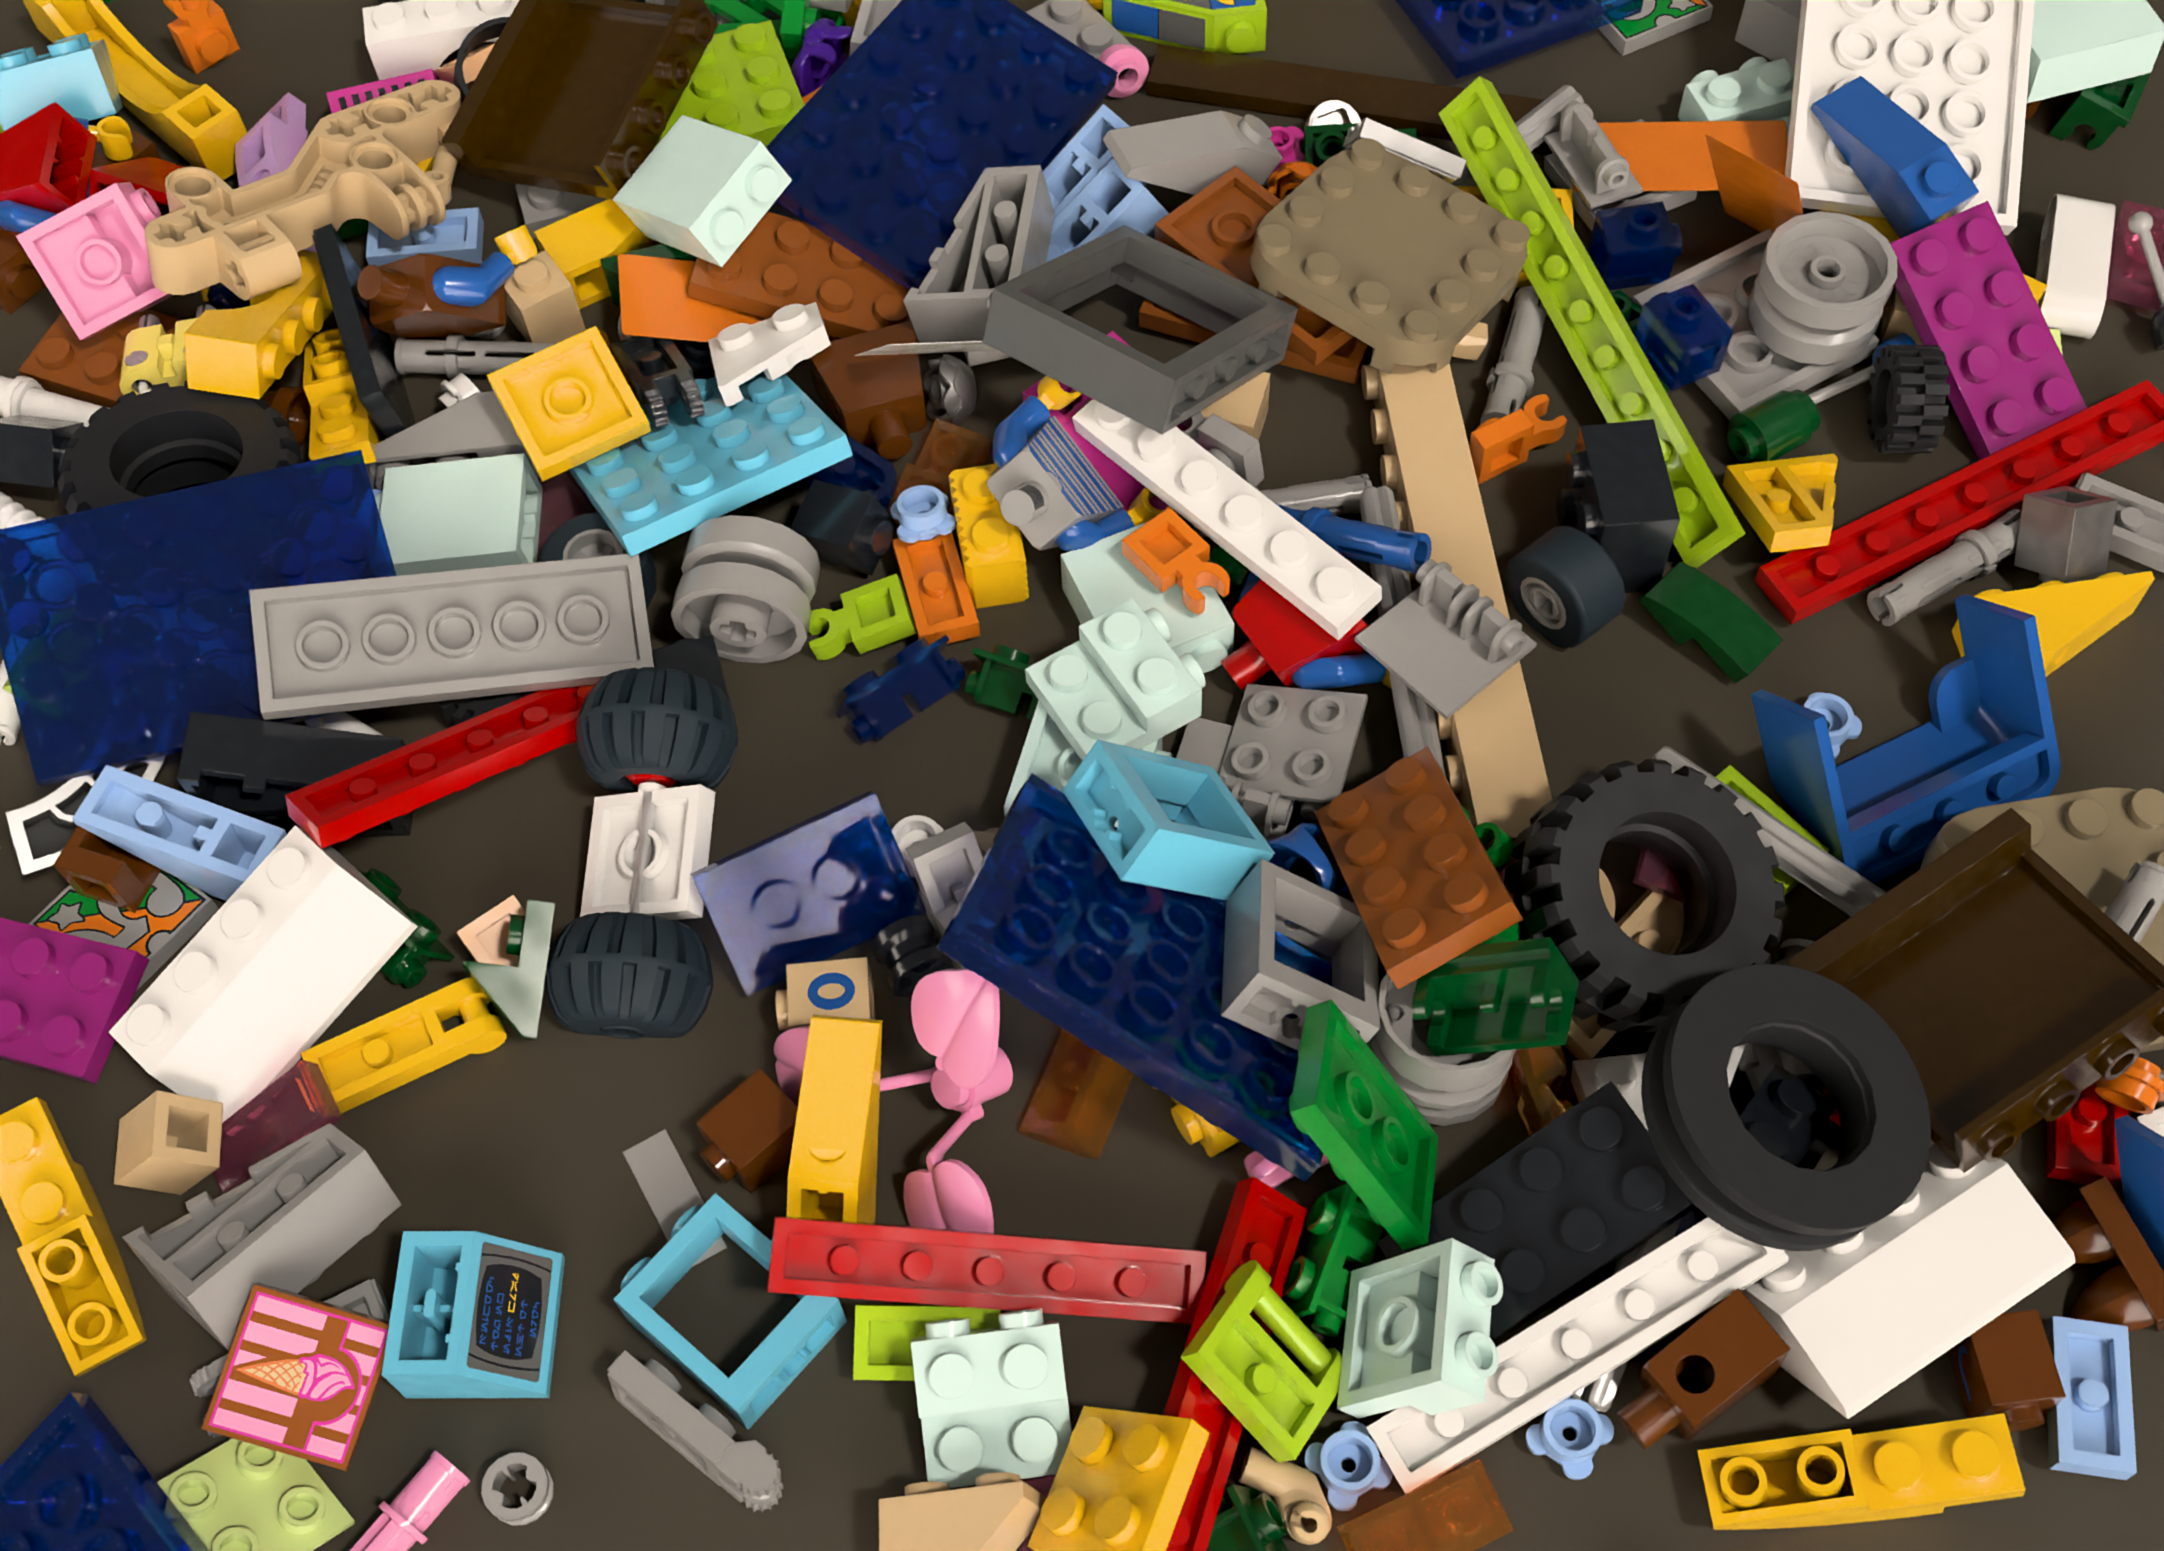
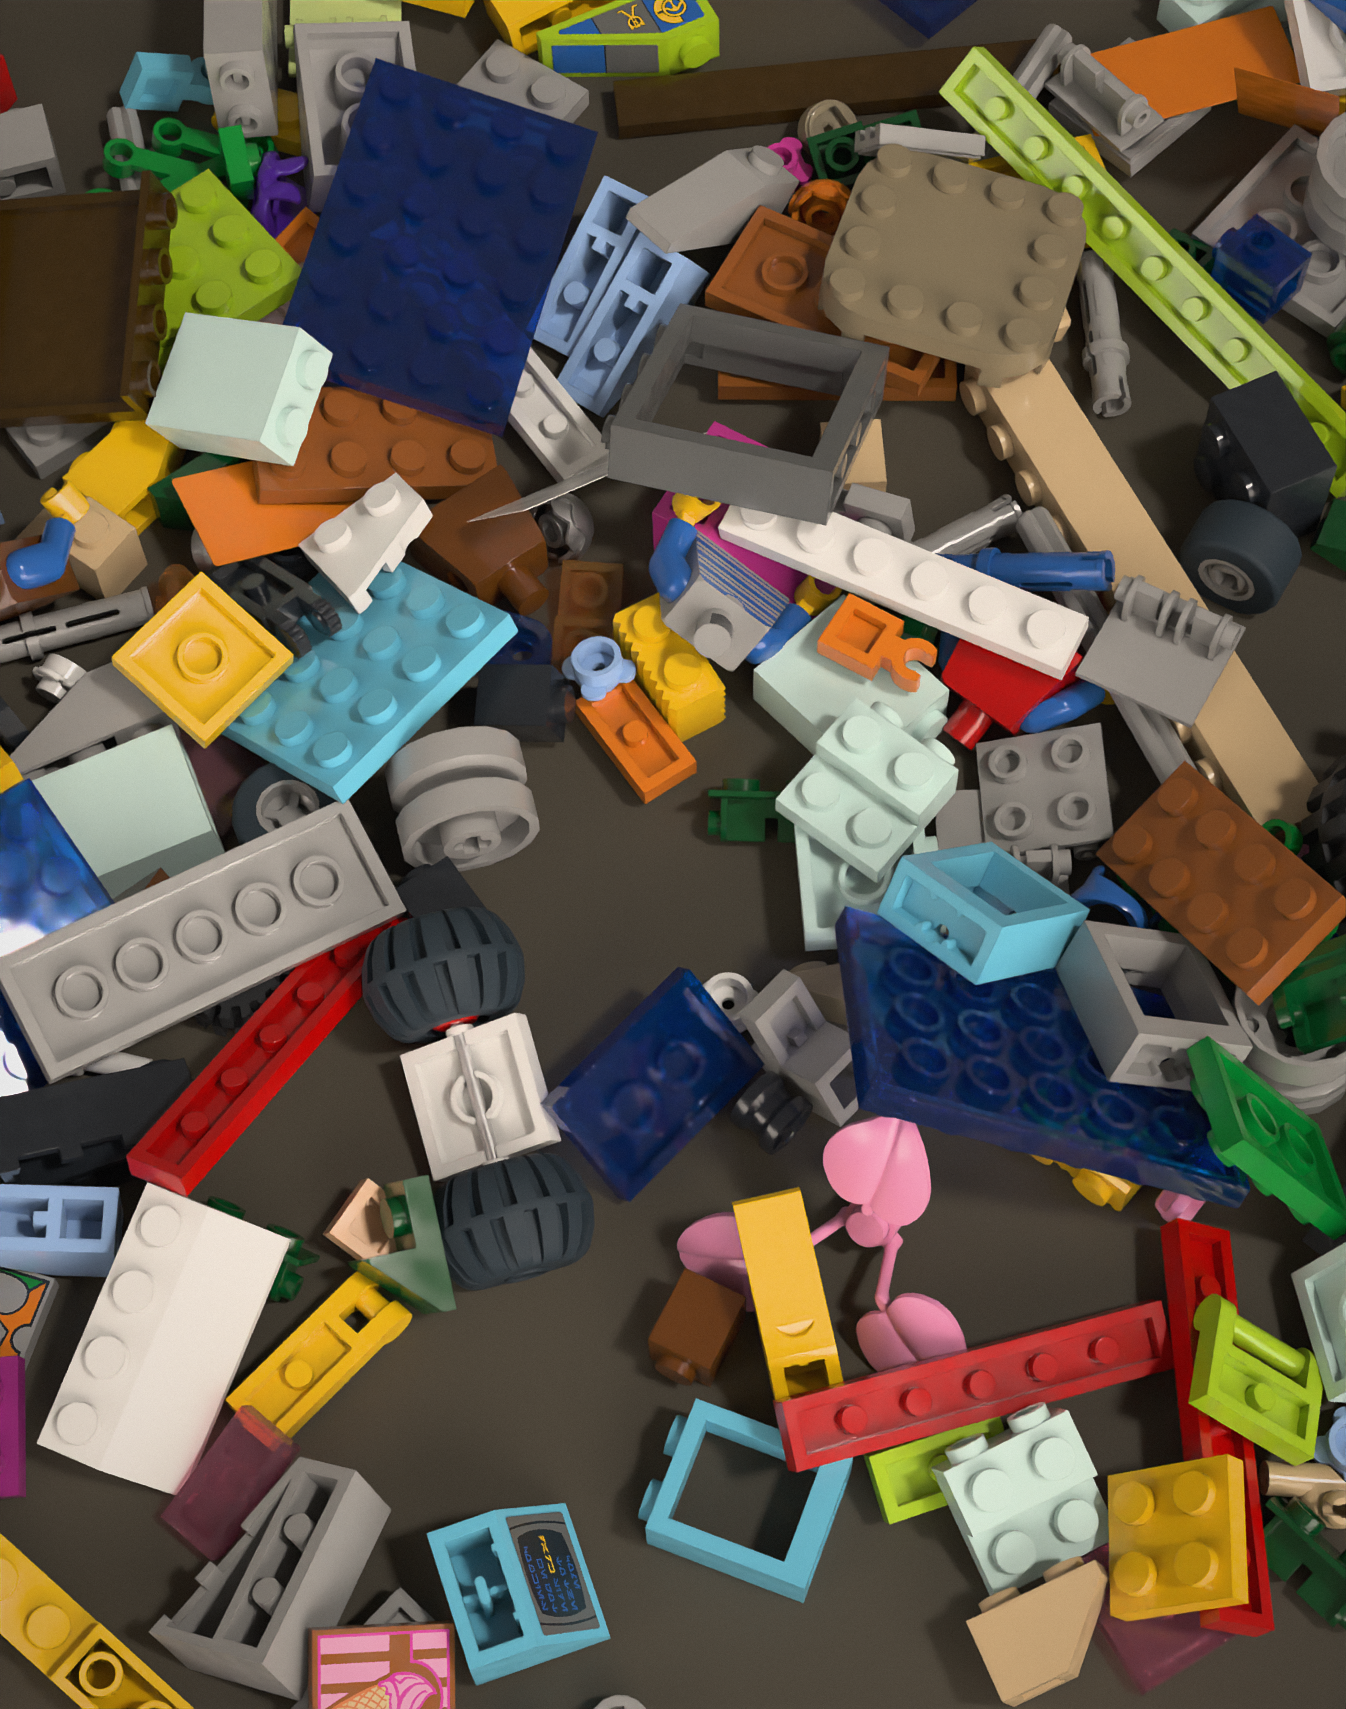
camera: 20 degrees left, 5 degrees up
(168, 1143) = (142, 1528): tan brick -> none
(666, 1184) = (629, 1408): light grey sticker -> none
(699, 1434) = (766, 1621): light grey hinge -> none
(826, 988) = (711, 1179): tan brick -> none
(869, 619) = (585, 785): lime plate -> none
(879, 700) = (628, 869): clear blue hinge -> none
(997, 237) = (558, 382): light grey wedge -> none
(1076, 1098) = (975, 1194): clear orange slope -> none
(1120, 58) = (592, 113): bright pink plate -> none
(1317, 1280) = (1264, 1240): green hinge -> none
(1507, 441) = (1126, 422): orange plate -> none
(1634, 245) = (1172, 176): clear blue brick -> none

